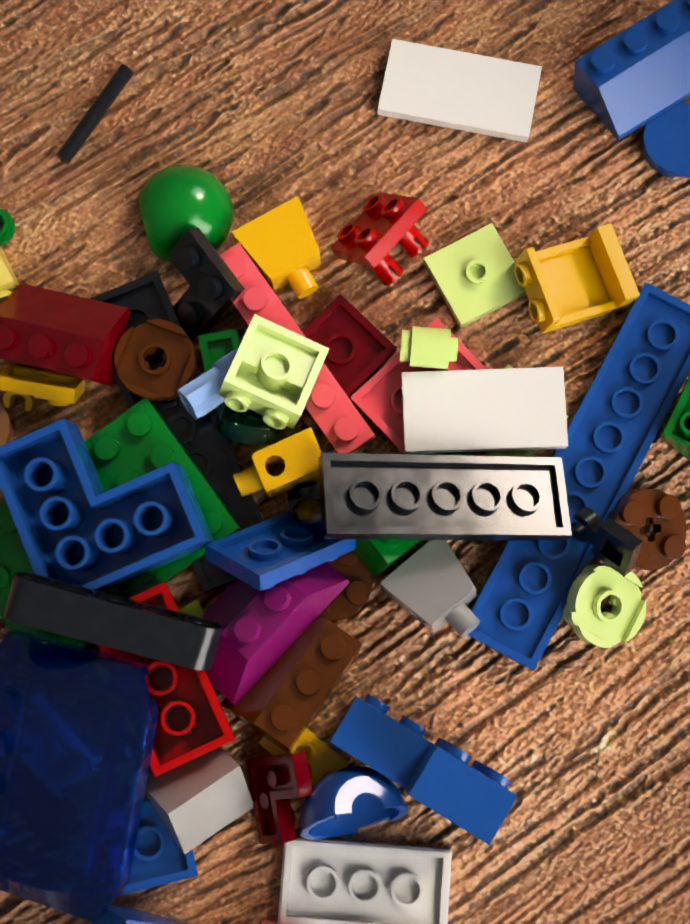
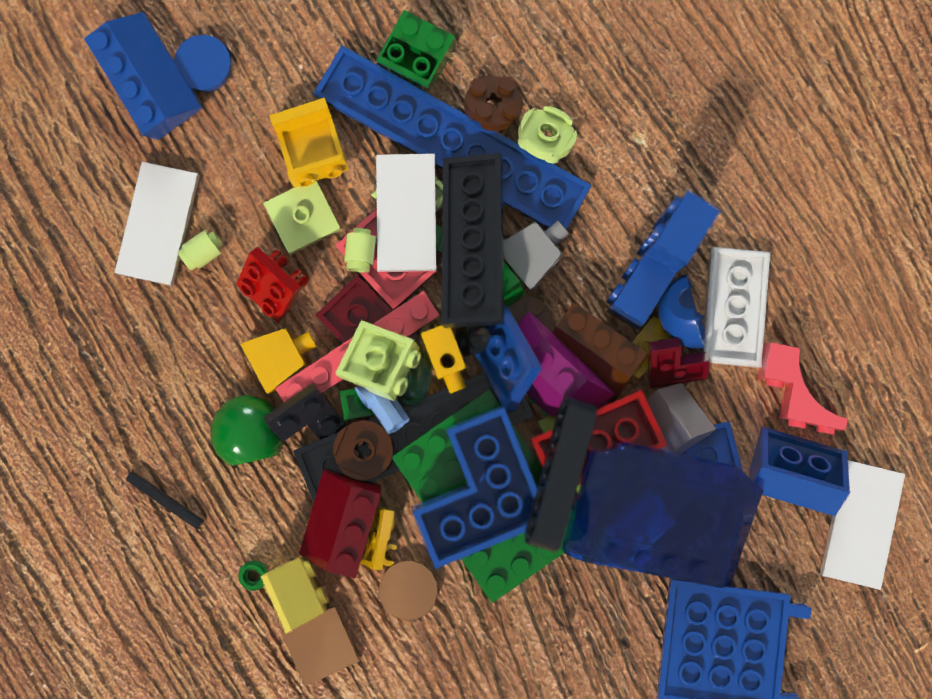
camera: 85 degrees left, 5 degrees up
(425, 144) = (200, 250): none -> yellowish green brick
(610, 541) = (505, 126): black plate -> none

